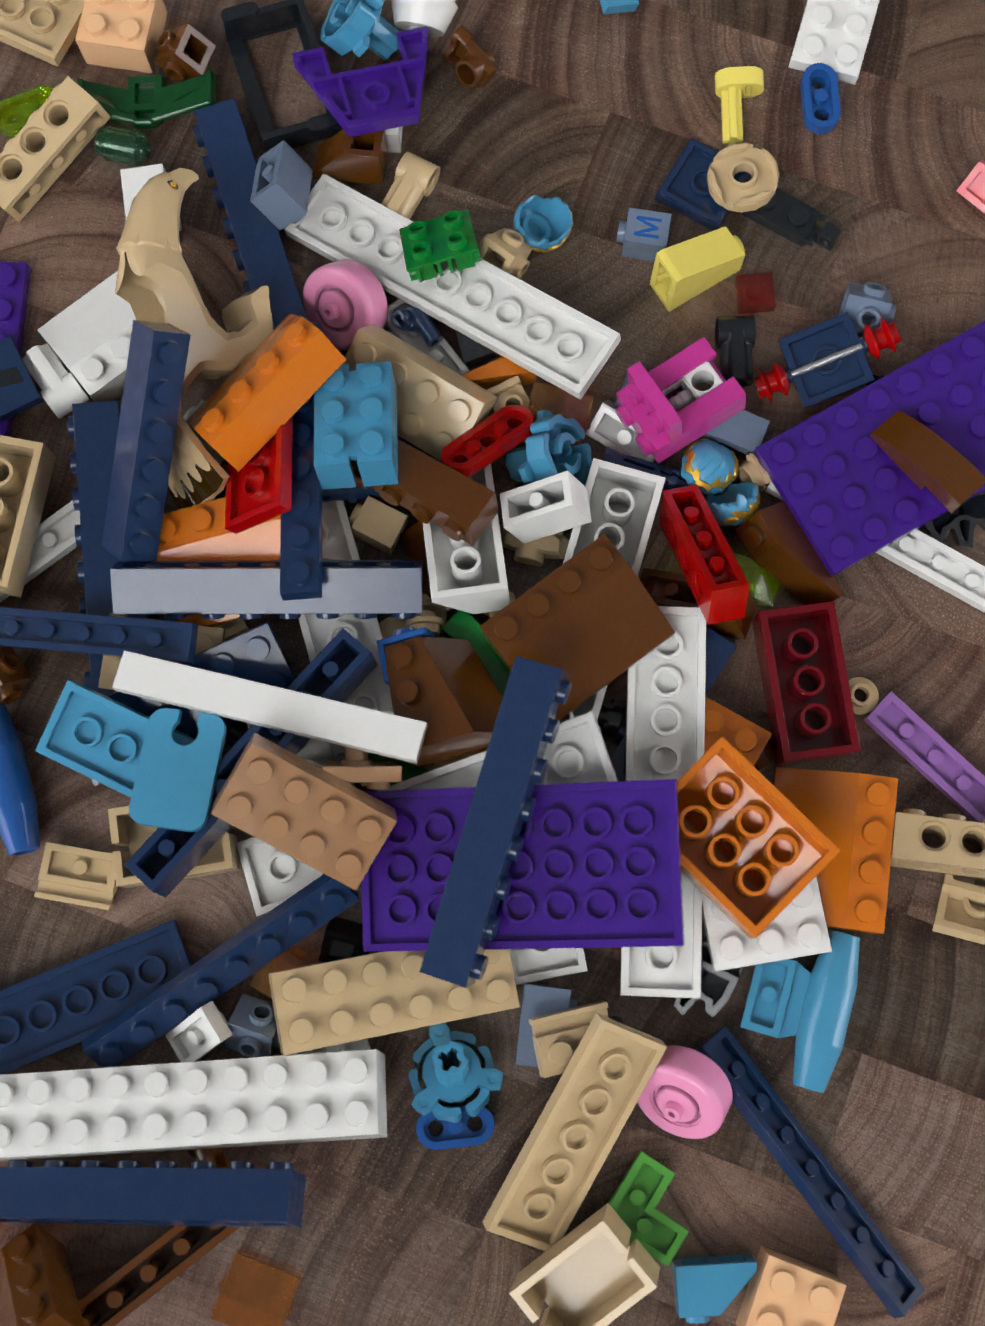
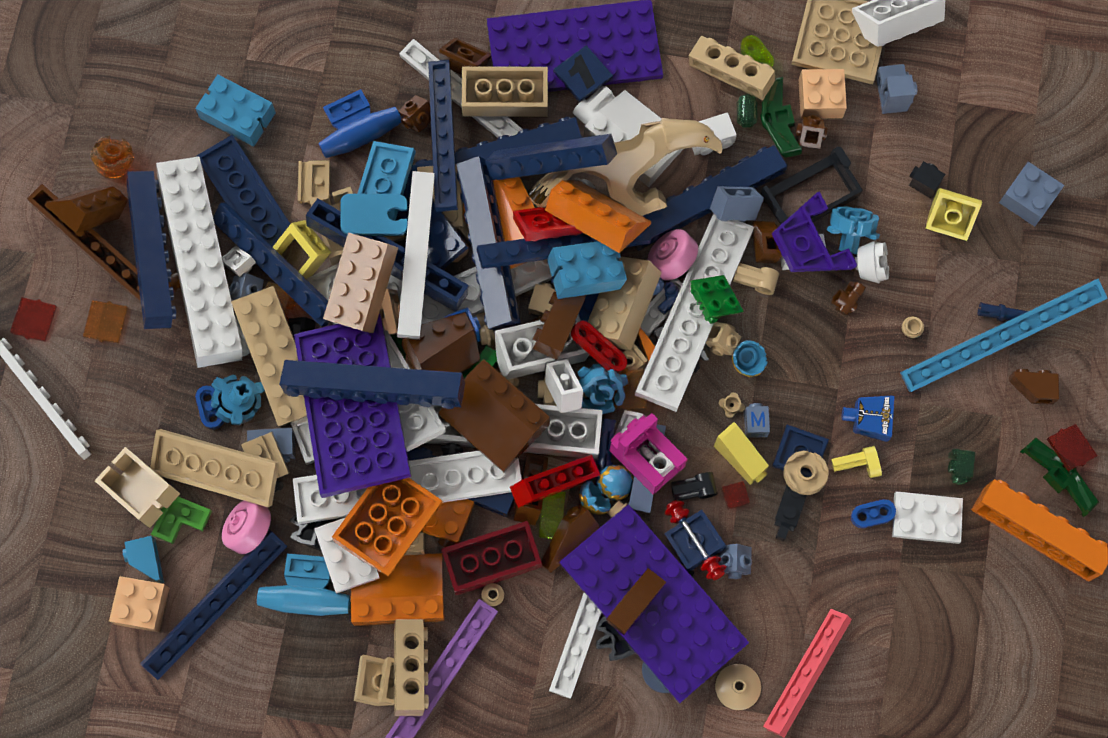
camera: 75 degrees right, 5 degrees down
(183, 905) = (309, 242): none -> light yellow window
(609, 259) = (735, 400): none -> tan plate
(669, 65) = (872, 417): none -> blue torso

